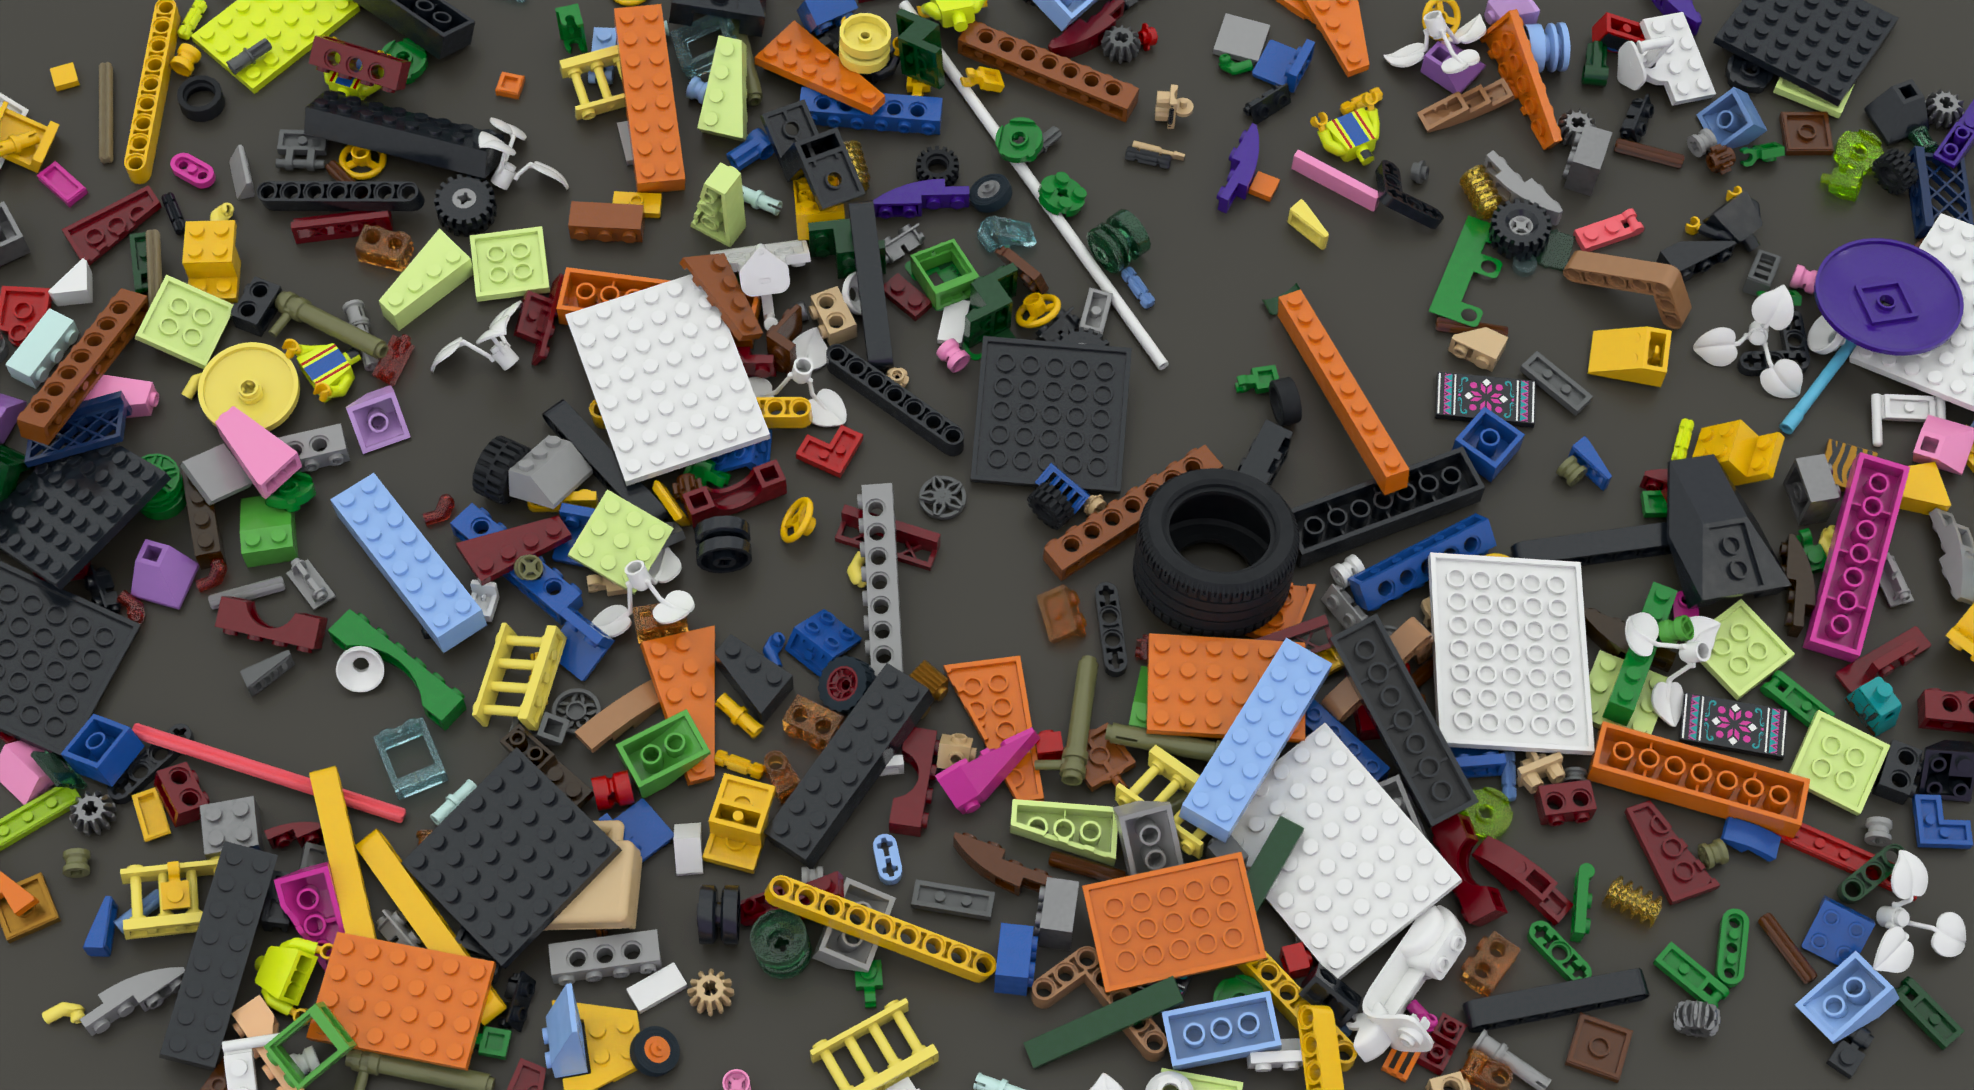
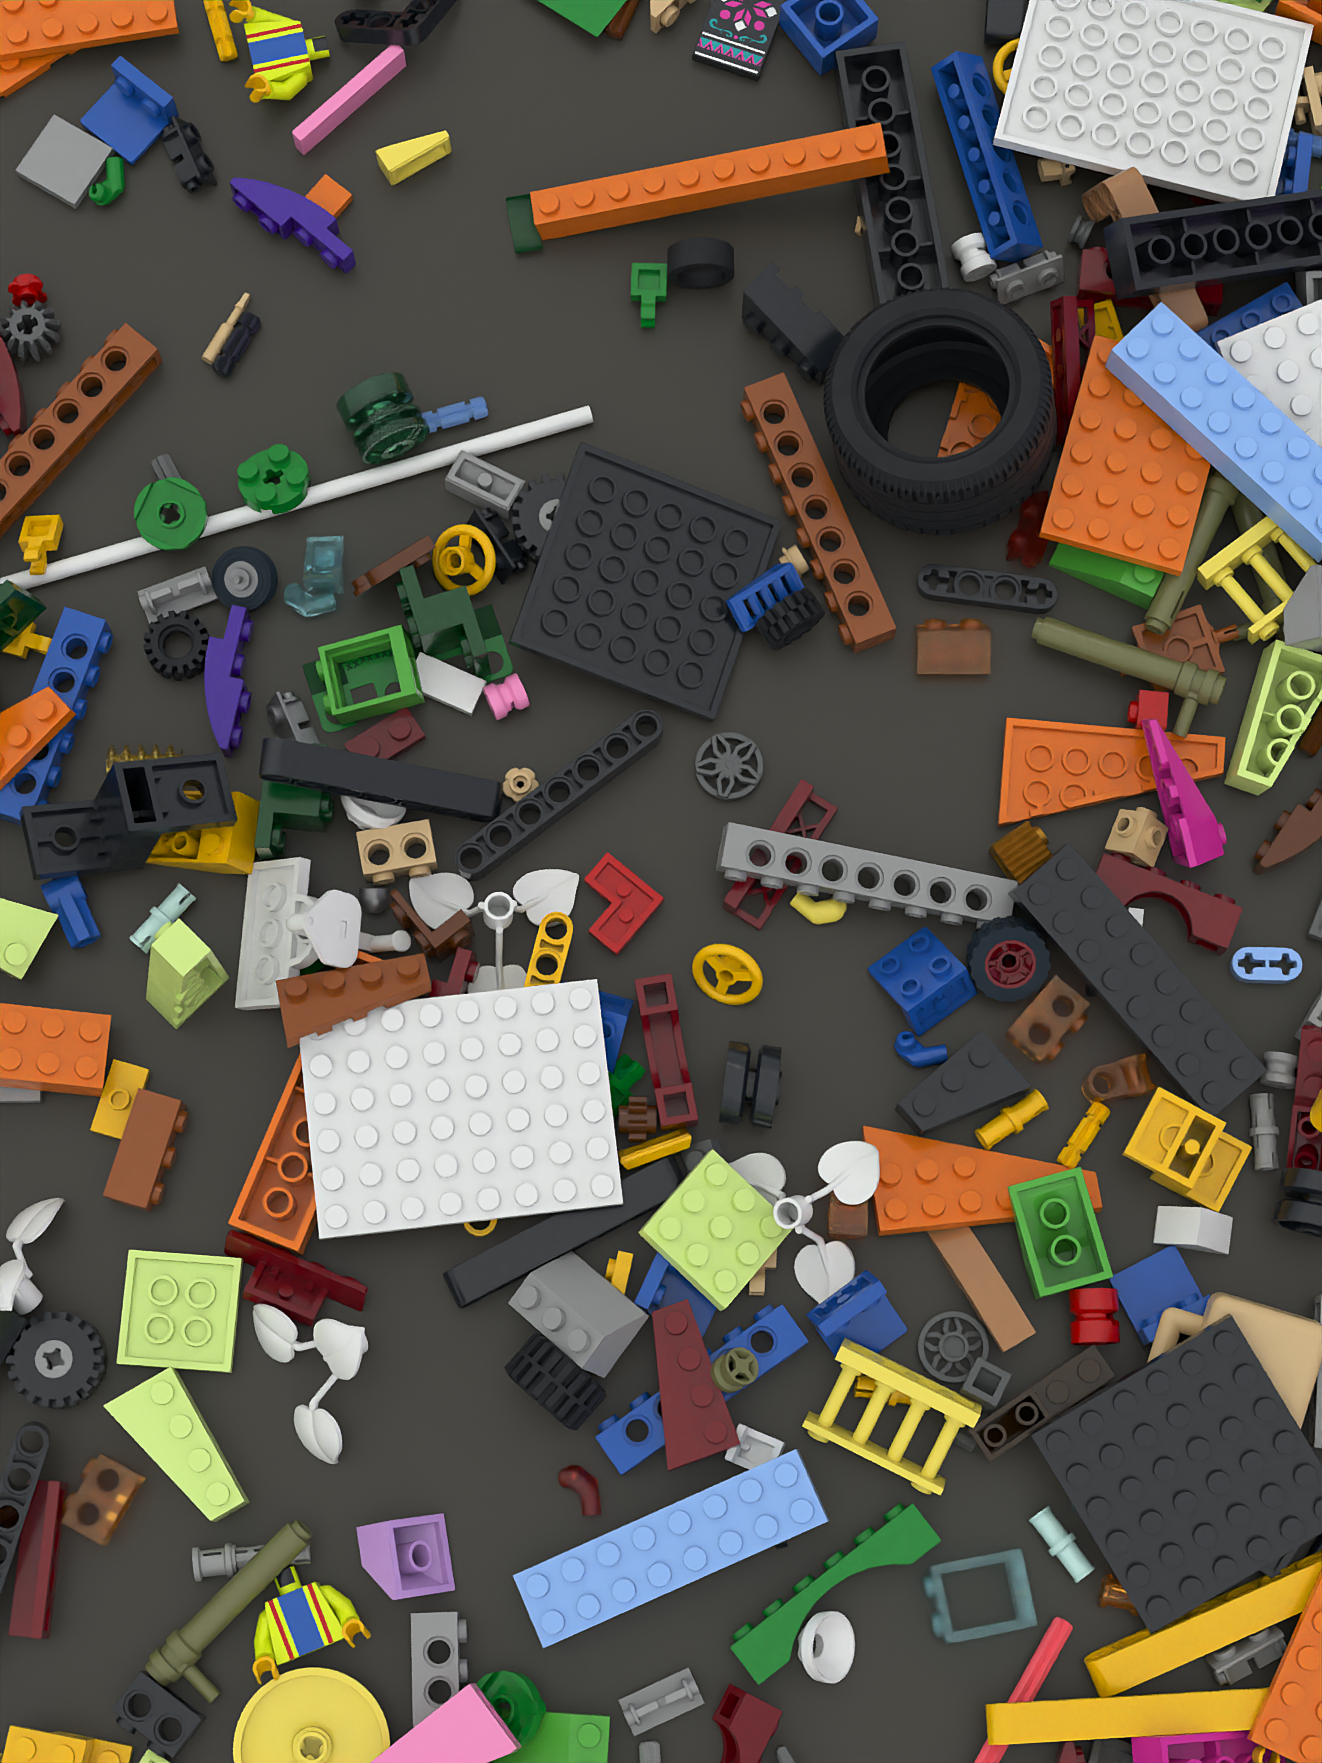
camera: 75 degrees left, 15 degrees up
(391, 366) = (293, 1504): clear red hinge -> none
(761, 880) = (1264, 1132): none -> light grey pin
(970, 160) = (177, 594): none -> light grey hinge
(1169, 106) = (169, 286): tan hips -> none

